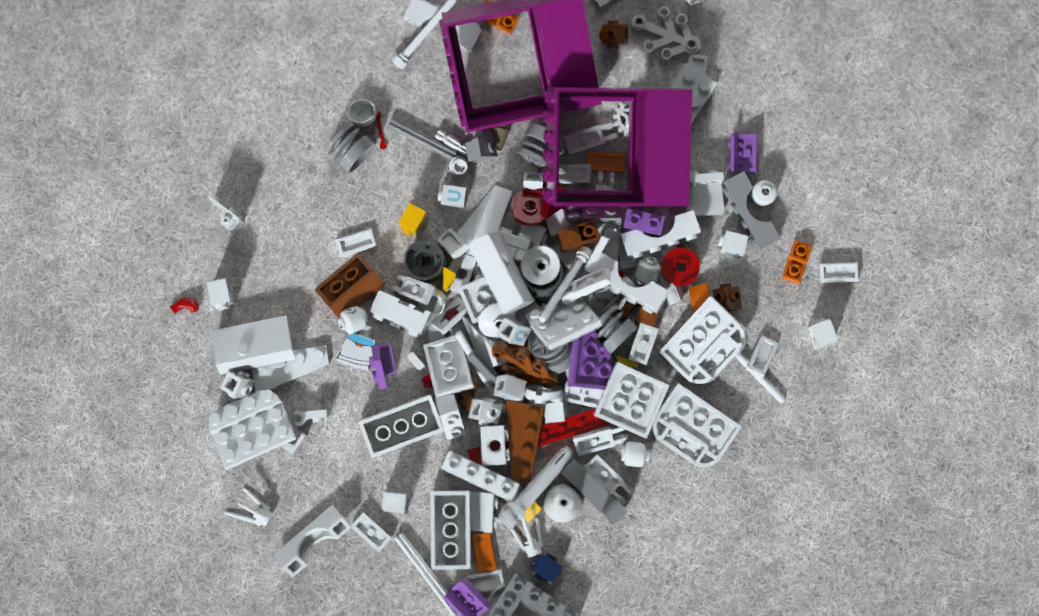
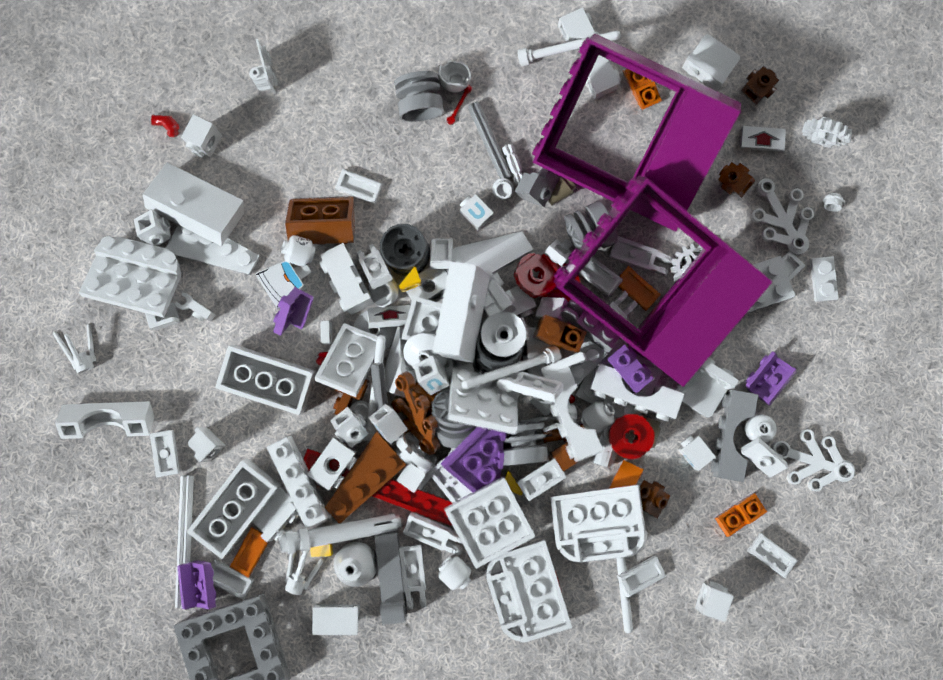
camera: 40 degrees right, 0 degrees up
(412, 220) = (422, 204): yellow brick -> none
(450, 416) = (315, 406): white brick -> none
(546, 567) = (293, 612): dark blue brick -> none
(579, 549) = (335, 619): none -> white panel
(728, 55) = (824, 279): none -> white plate
(781, 210) = (764, 457): none -> white plate
(820, 185) = (817, 461): none -> white plant

